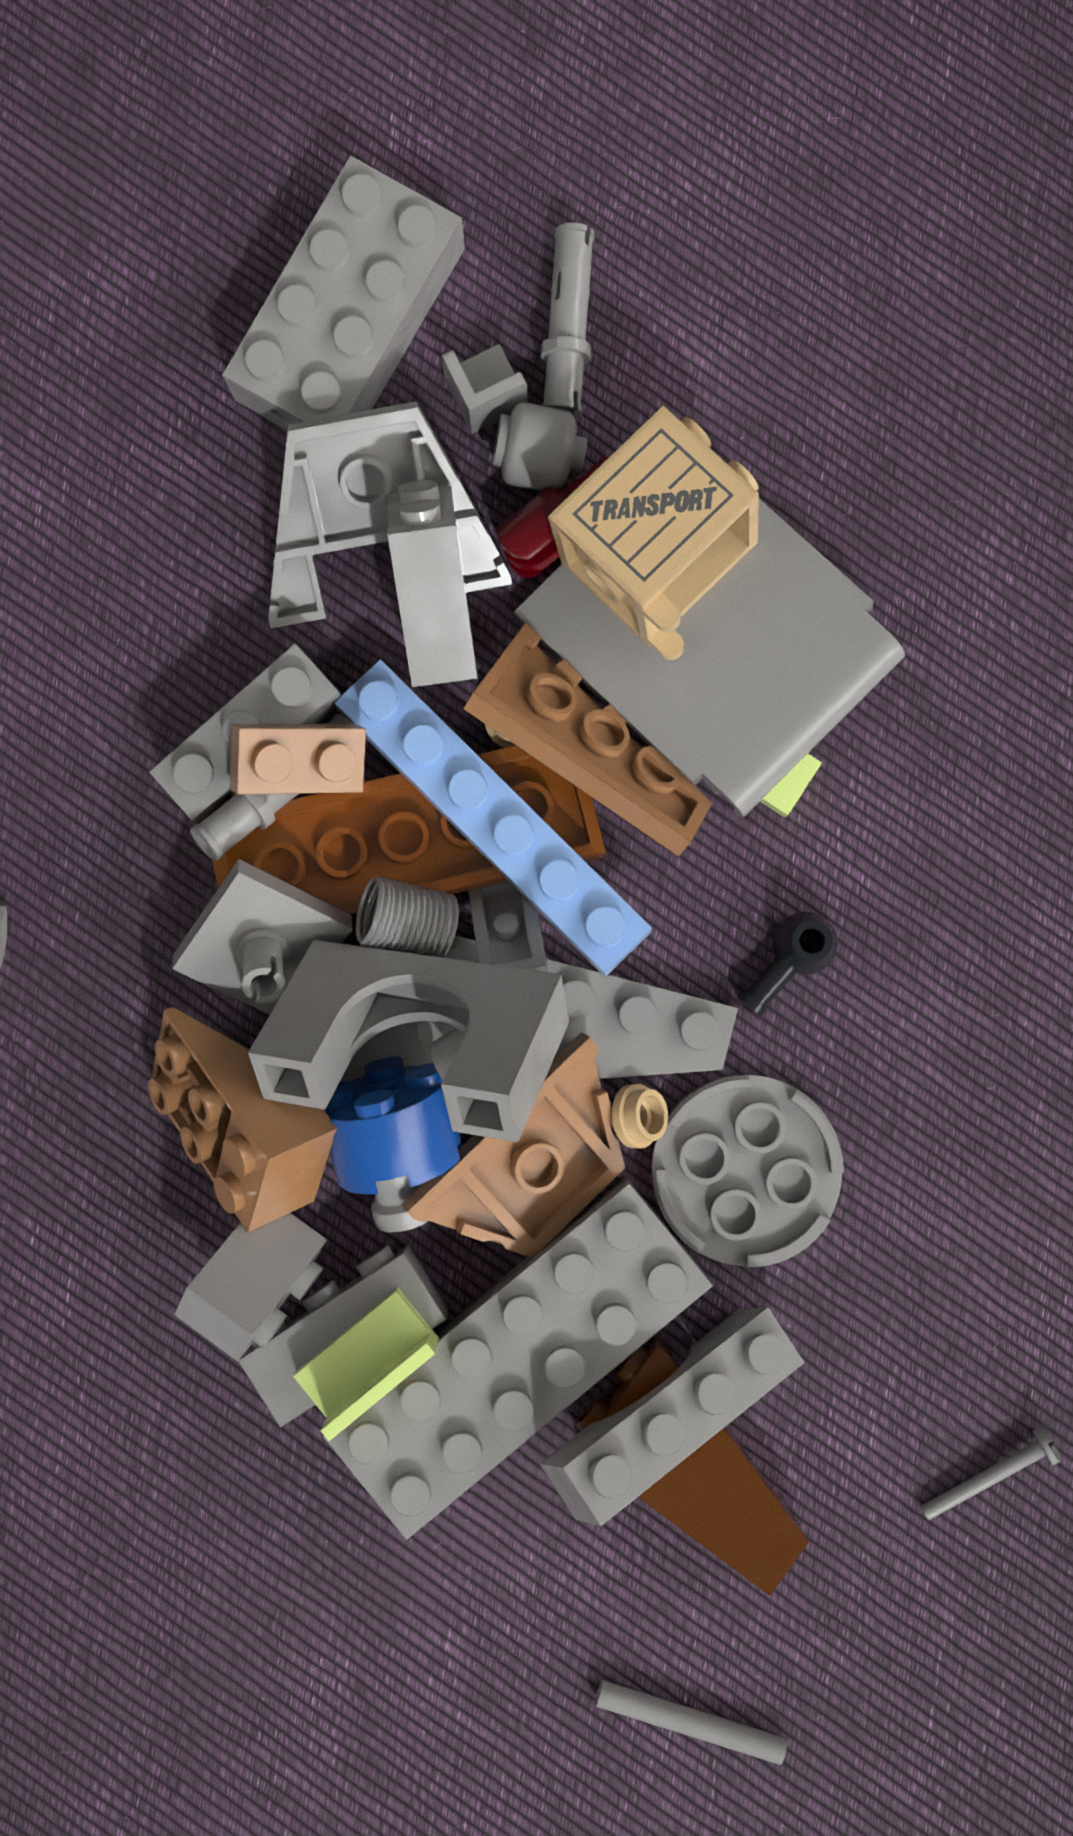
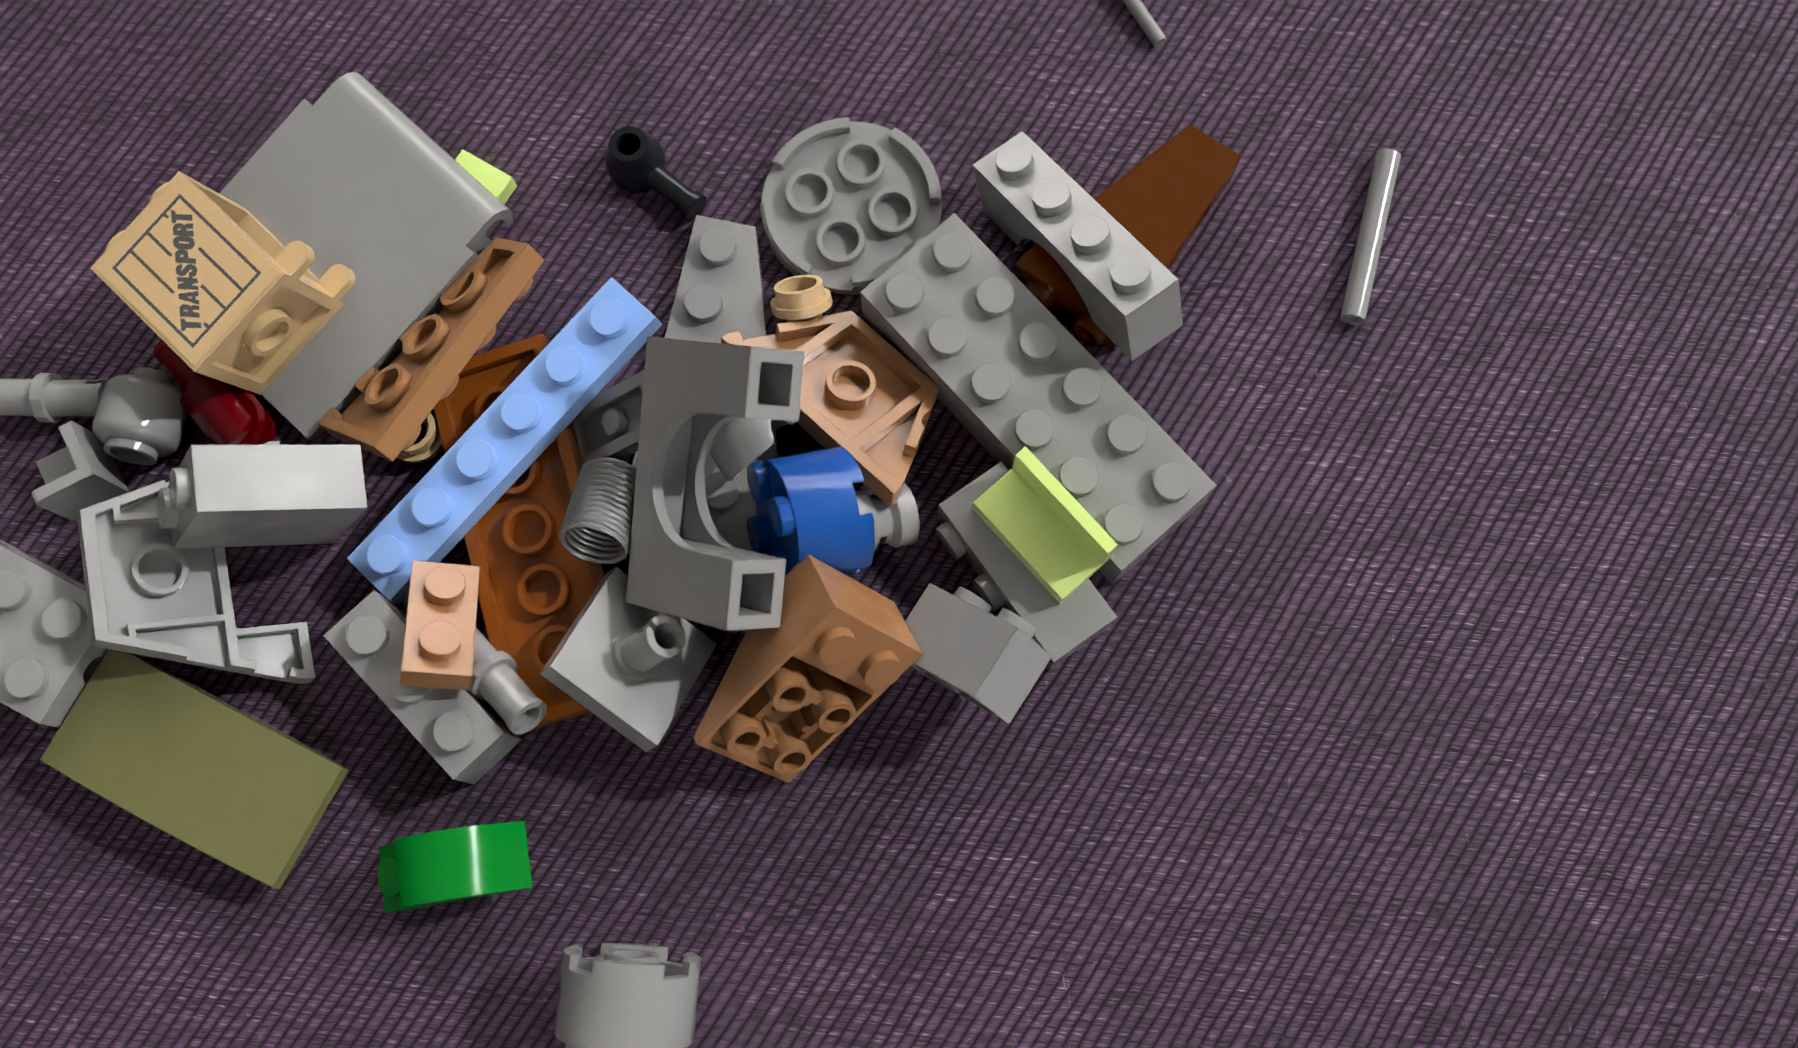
camera: 90 degrees left, 10 degrees down
(73, 769) = (454, 865): none -> green brick
(184, 520) = (195, 766): none -> olive slope

